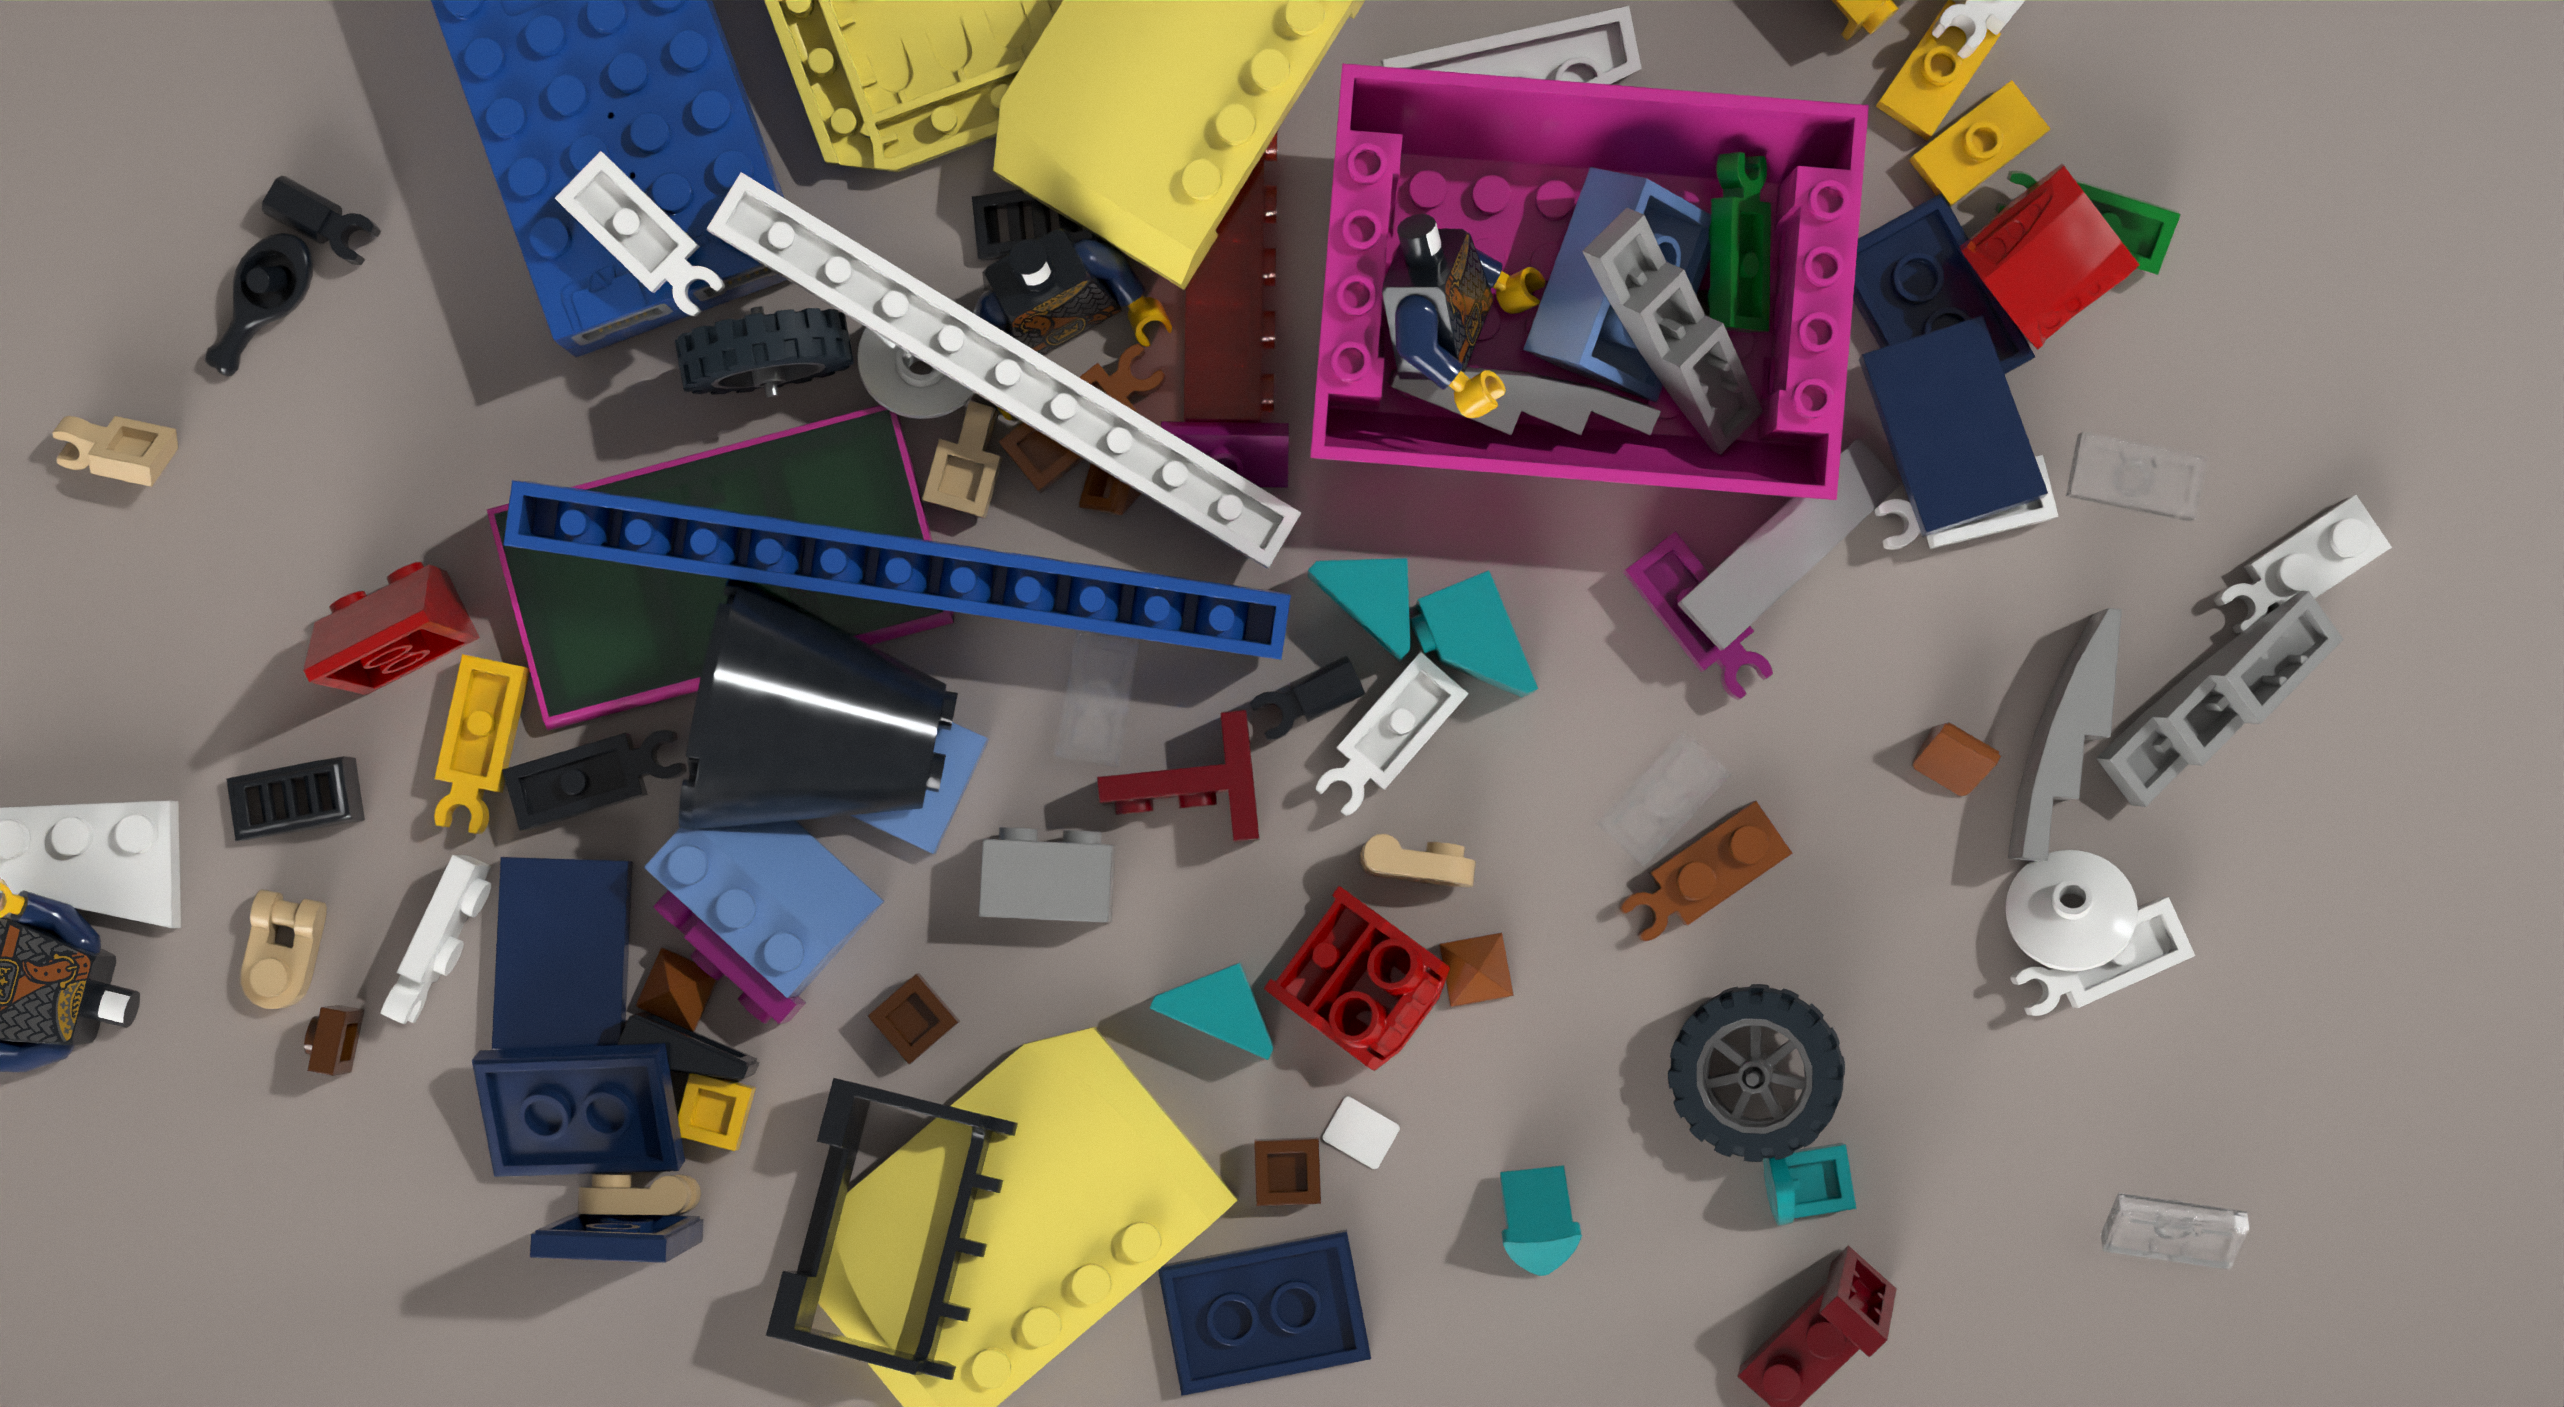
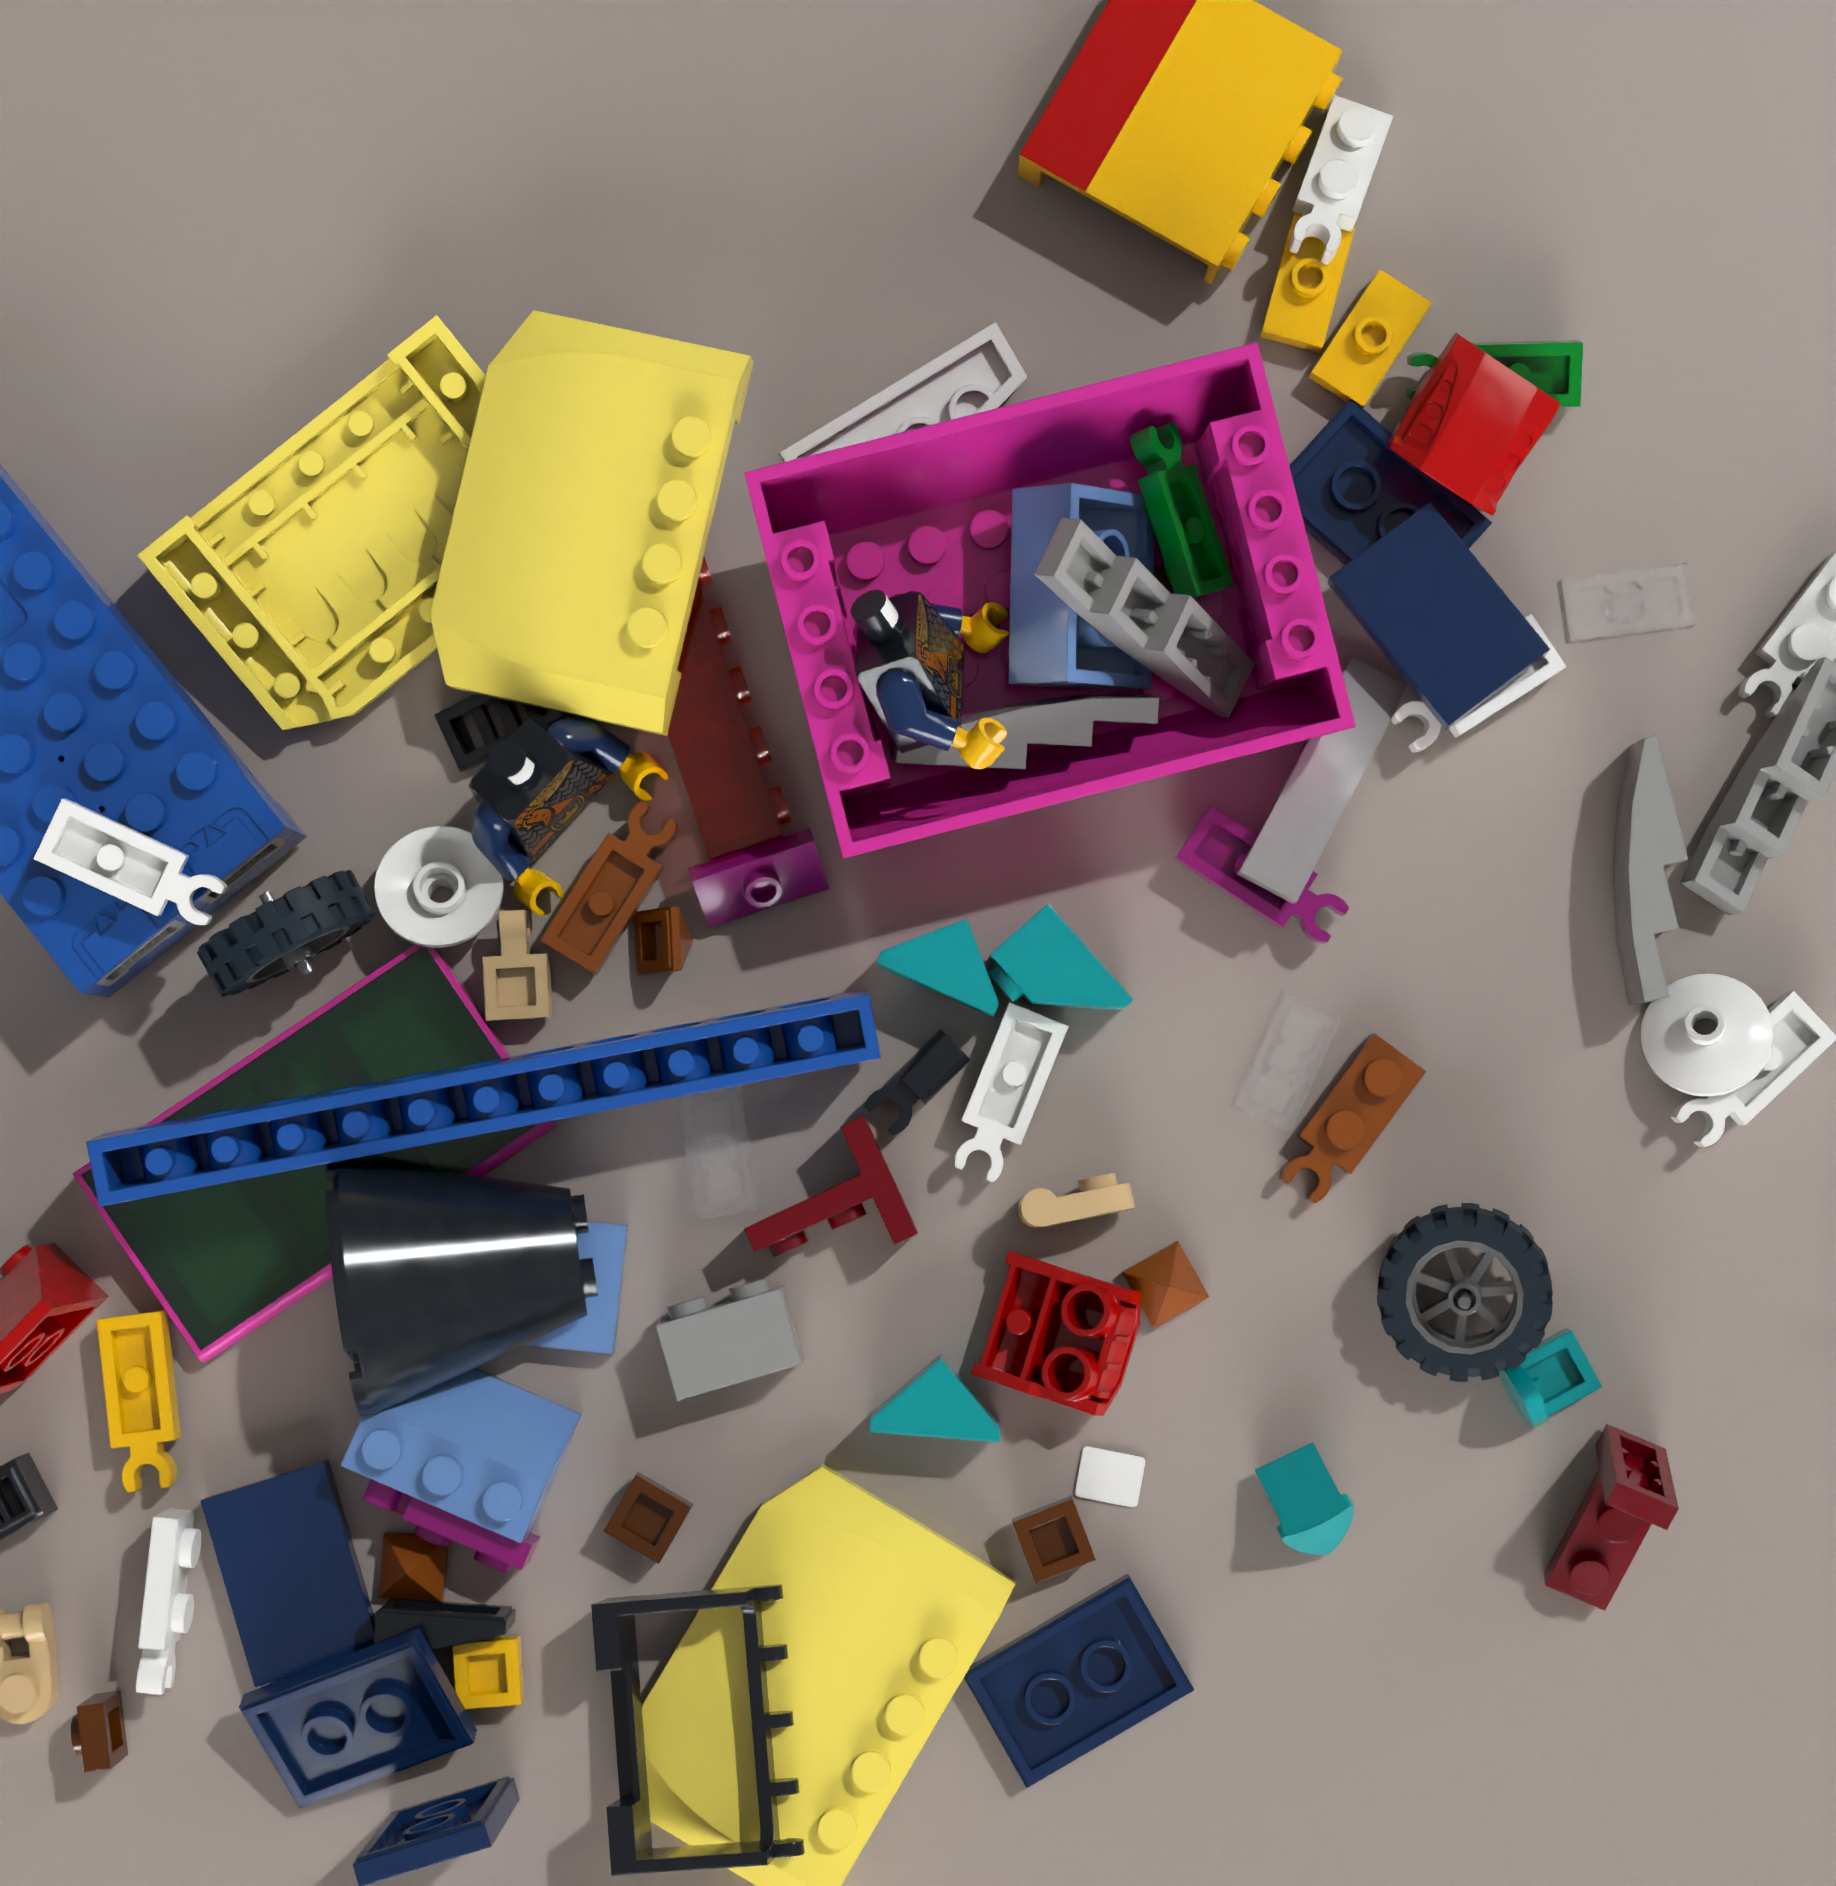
camera: 20 degrees left, 0 degrees up
(586, 778) = (256, 1397): black plate -> none
(614, 1196) = (422, 1787): tan plate -> none
(1002, 370) = (519, 873): white plate -> none
(1955, 758) = (1547, 929): dark orange slope -> none

